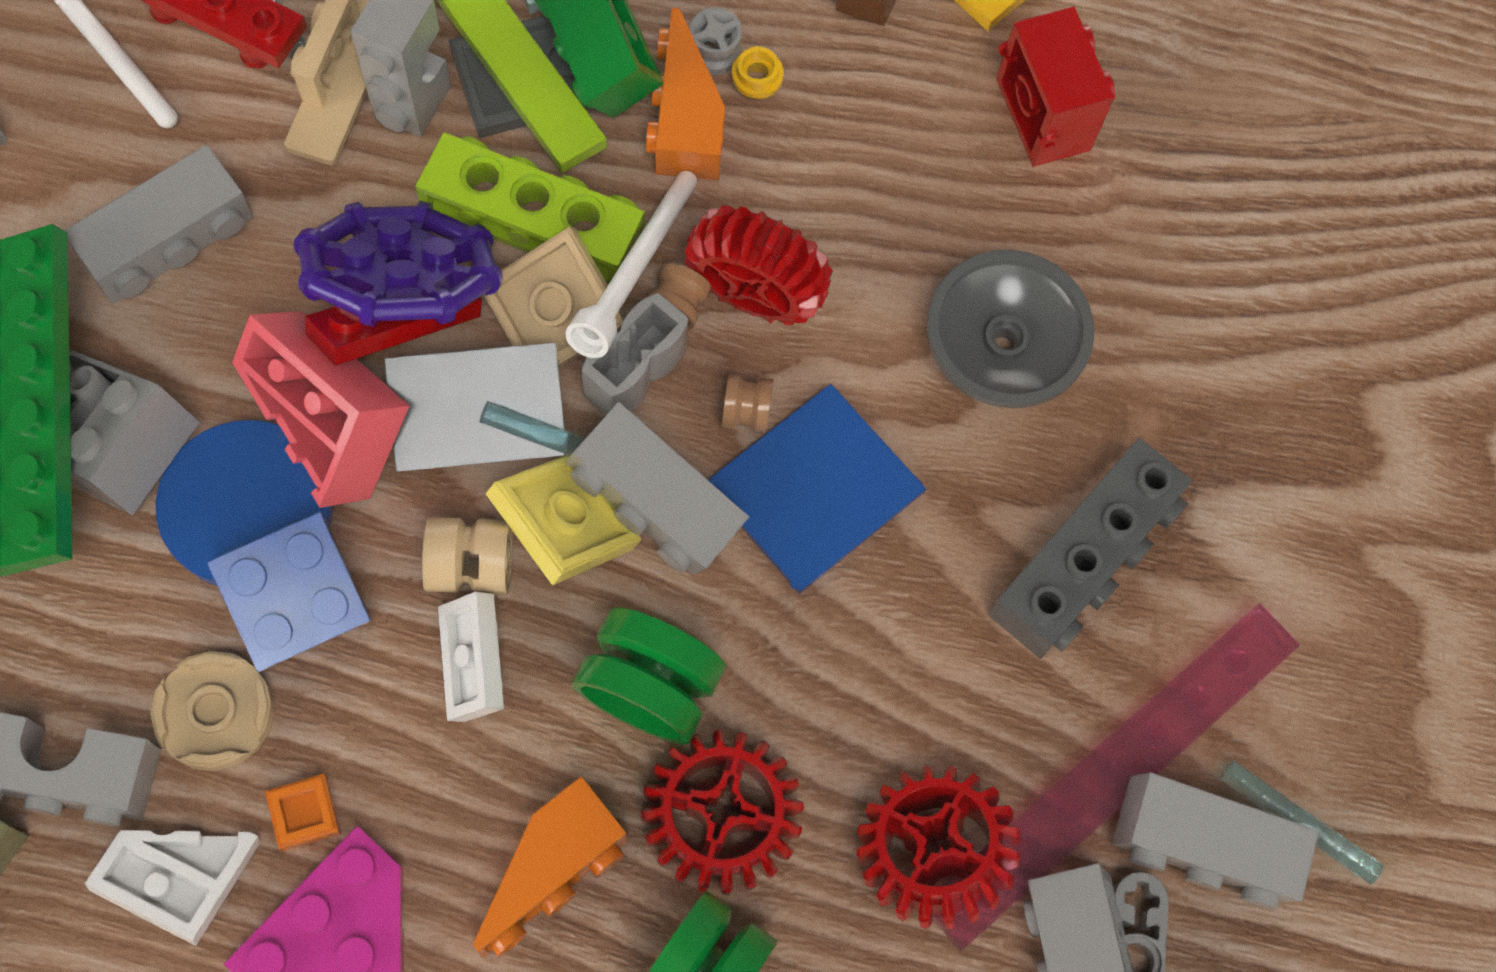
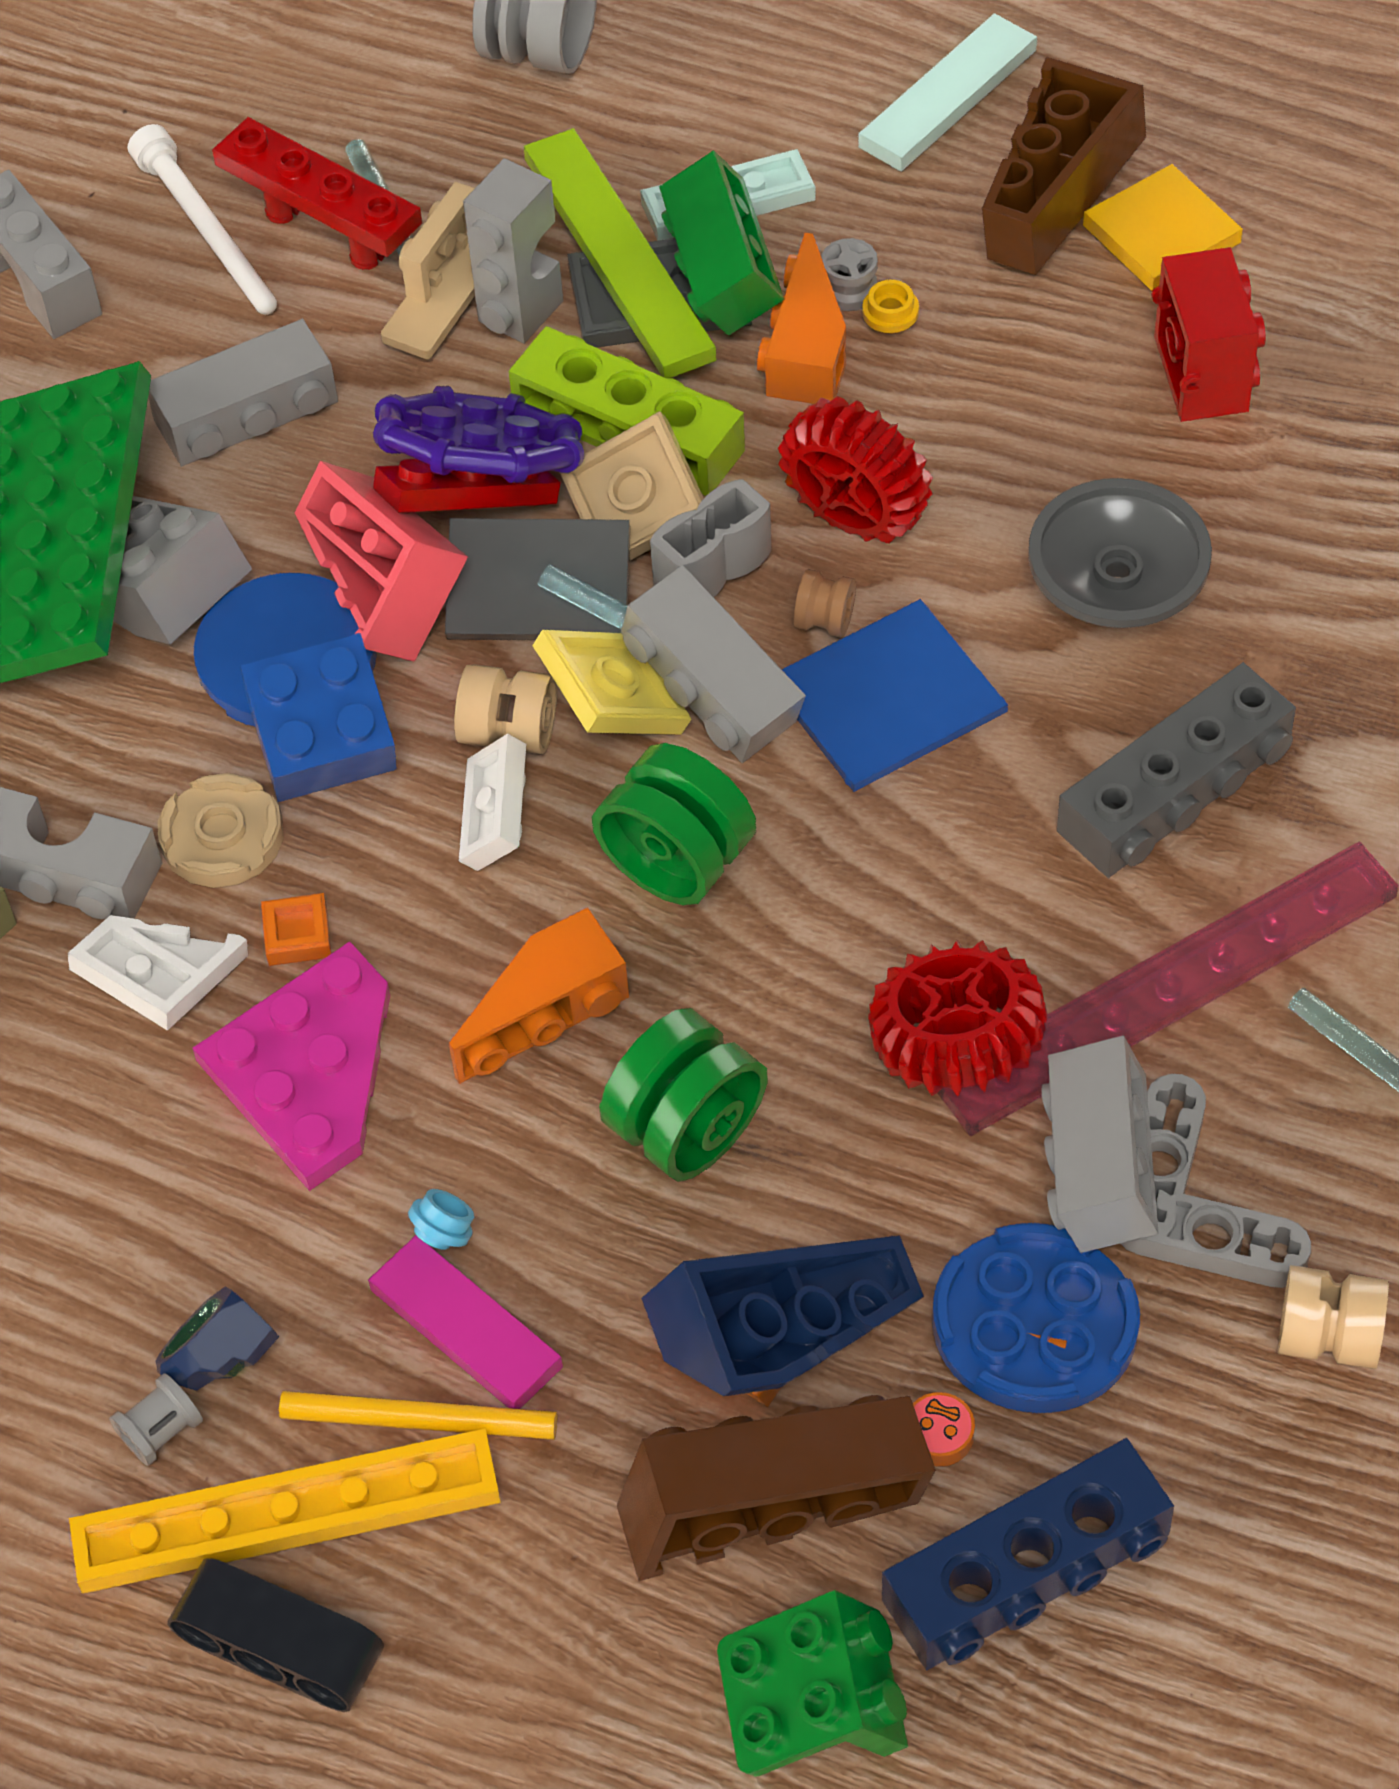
camera: 20 degrees right, 15 degrees down
(595, 327) = (671, 496): white piece -> none
(682, 289) = (780, 490): medium nougat wheel -> none
(749, 817) = (720, 948): red gear -> none
(1214, 840) = (1264, 1046): light grey brick -> none

